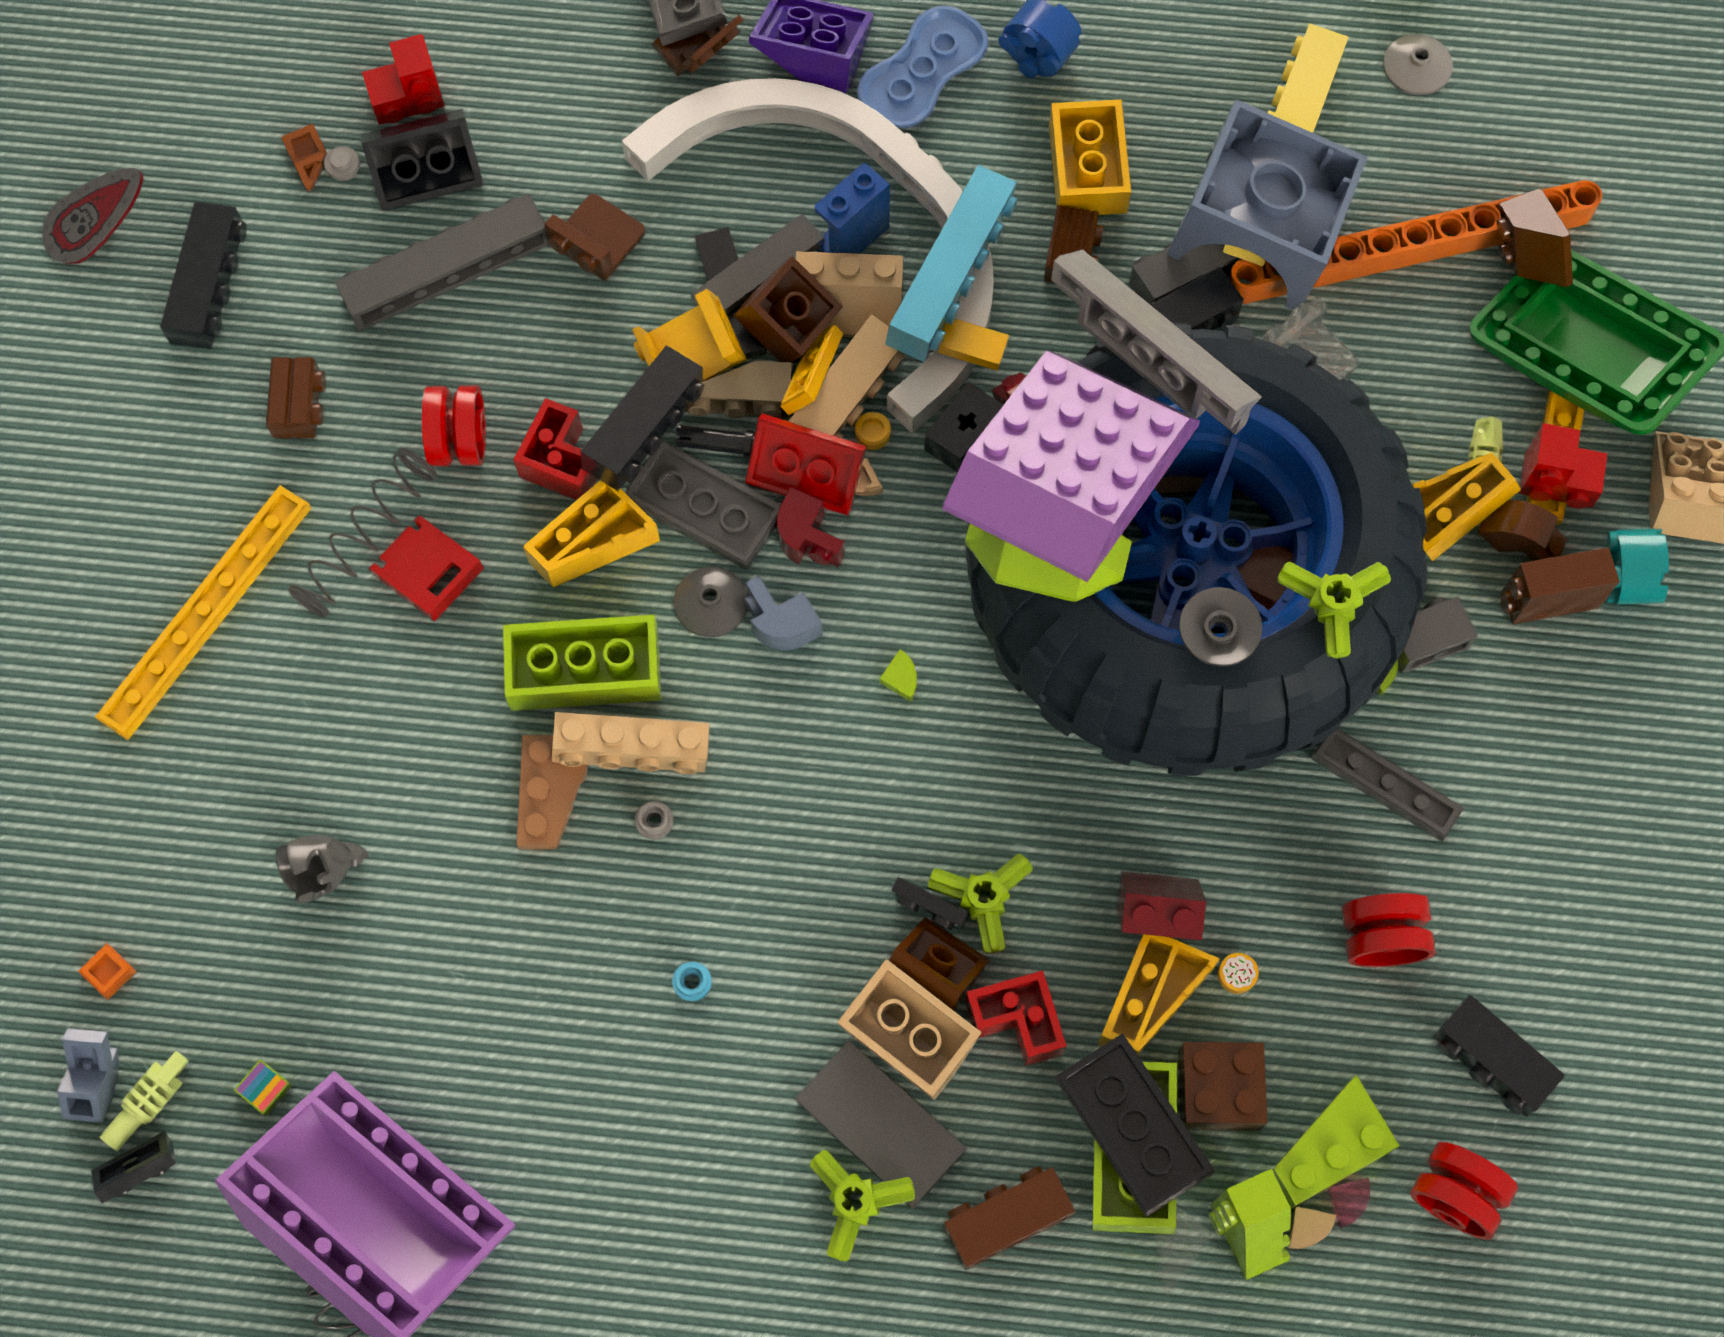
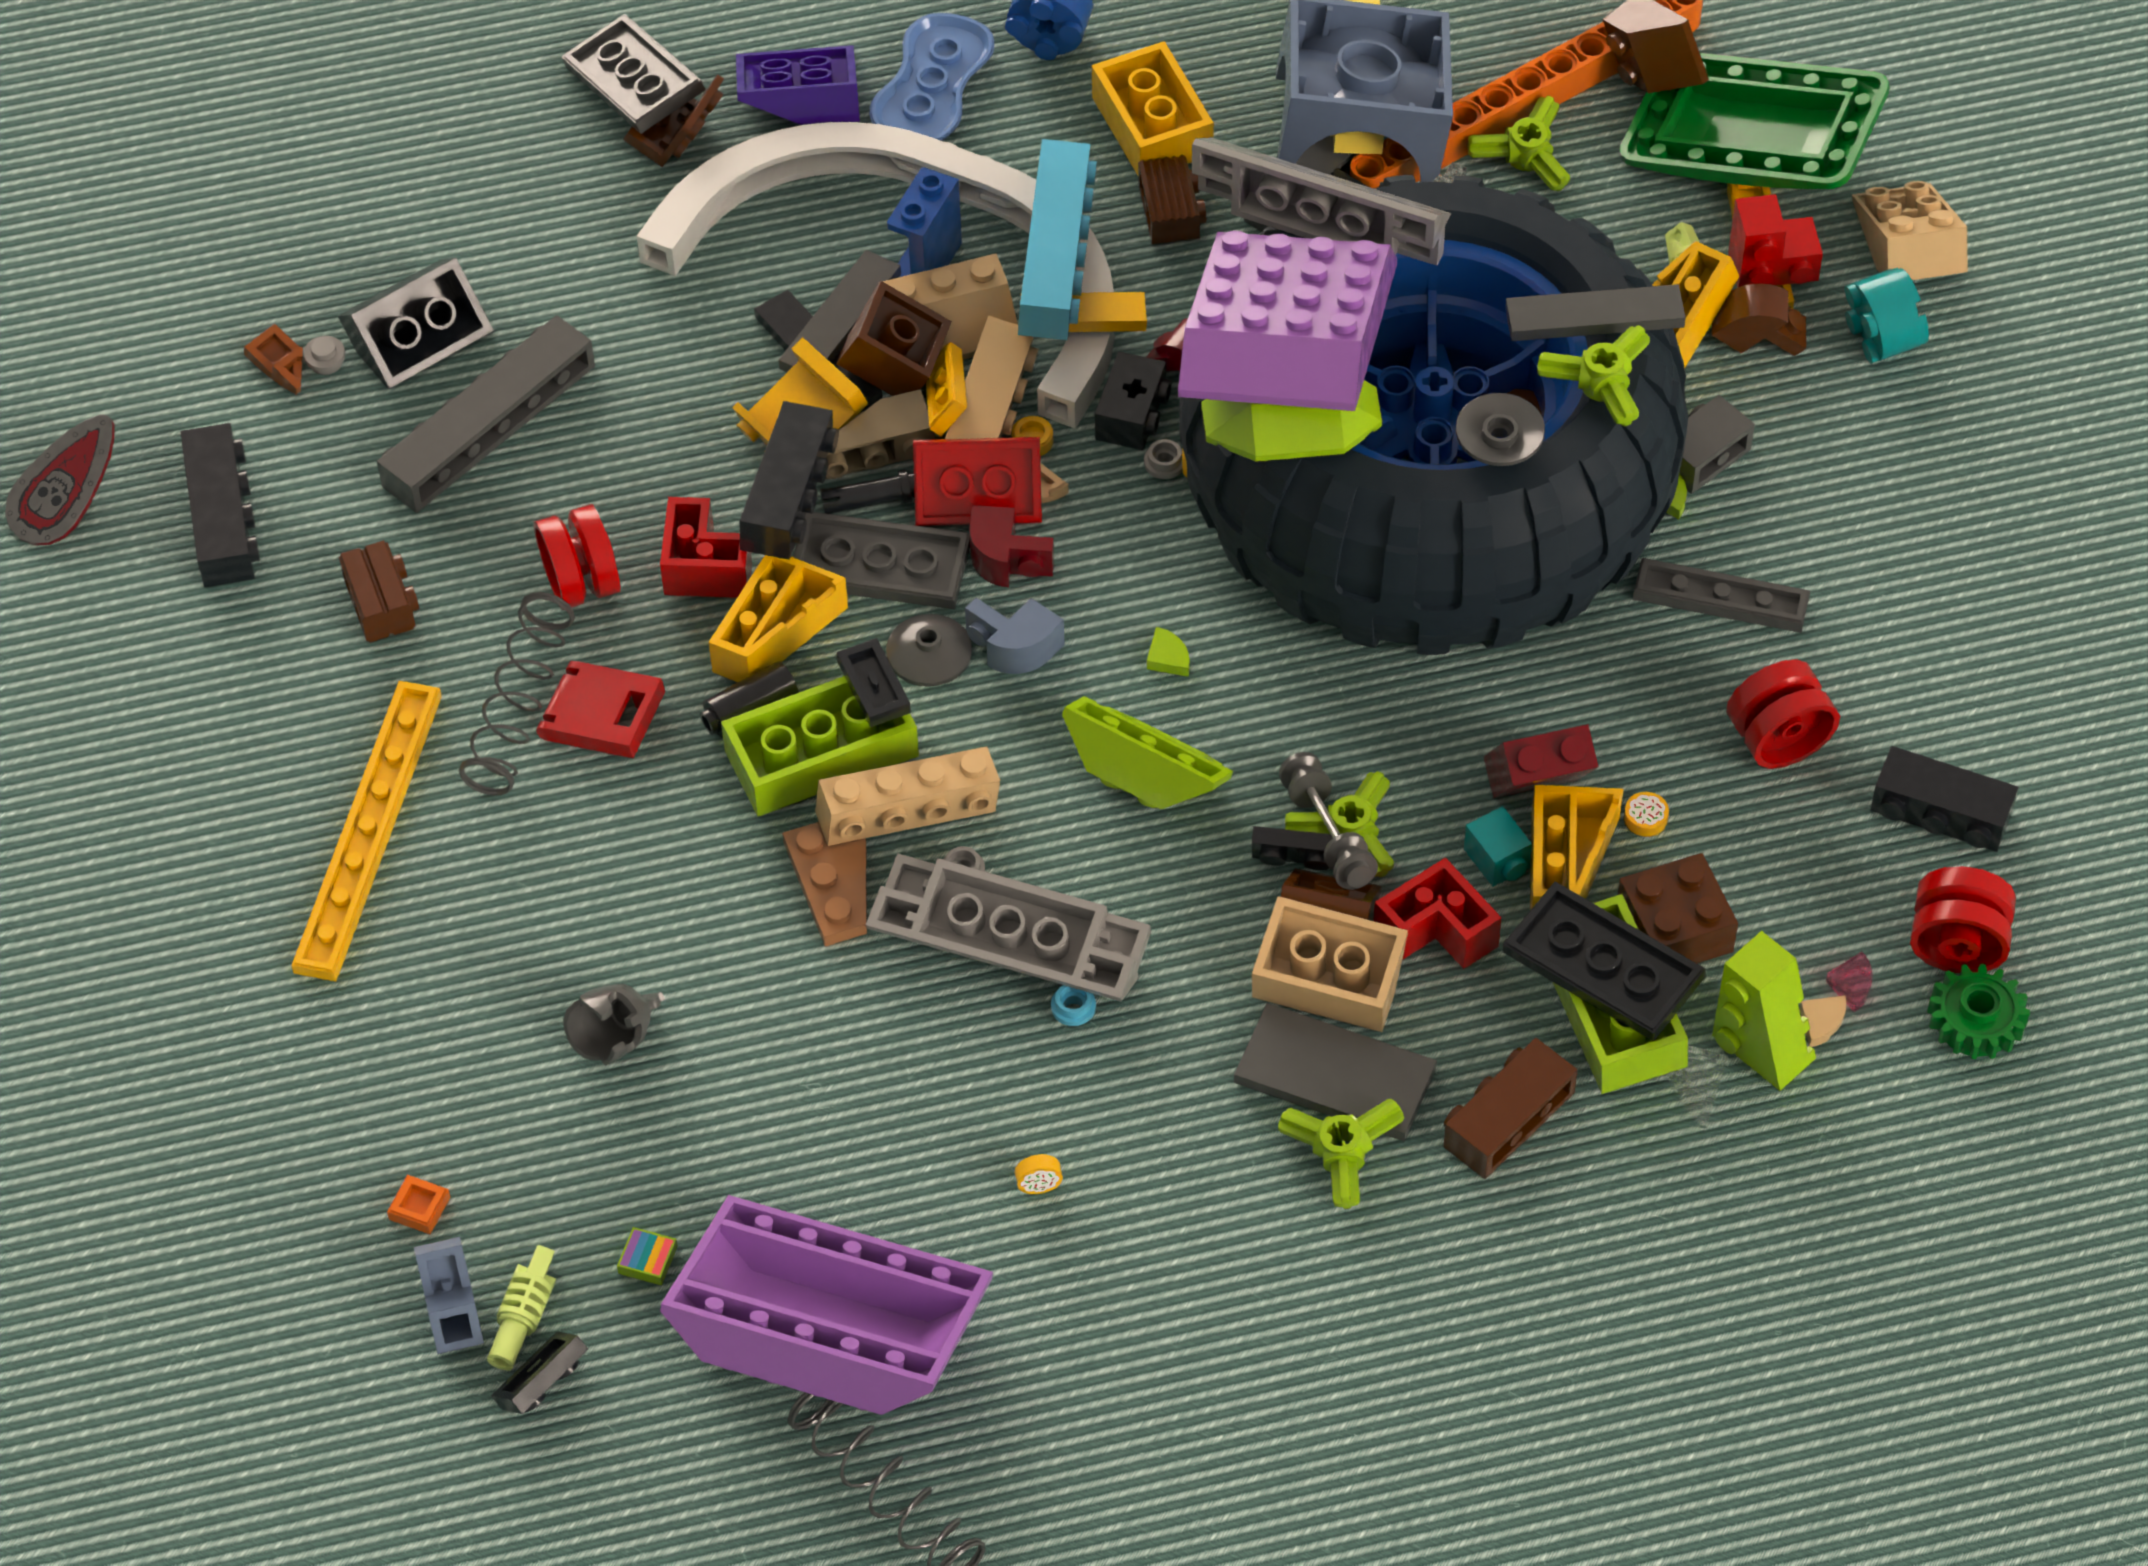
camera: 20 degrees left, 15 degrees down
(406, 85) = (370, 252): red brick -> none
(544, 602) = (751, 693): none -> black brick
(595, 236) = (643, 340): reddish brown bracket -> none
(598, 1133) = (1038, 1174): none -> yellow tile
(634, 636) = (873, 682): none -> black plate
(663, 898) = (1010, 925): none -> light grey slope
(838, 771) = (1140, 757): none -> lime wedge
(961, 935) = (1345, 853): none -> dark grey axle
(1098, 964) = (1498, 846): none -> teal brick
(1335, 1145) = (1824, 921): lime wedge -> none
(1354, 533) = (1594, 312): none -> dark grey tile
(1396, 305) = (1526, 145): none -> lime bush
(1465, 1271) = (2000, 1015): none -> green gear
(1559, 586) = (1817, 354): reddish brown brick -> none

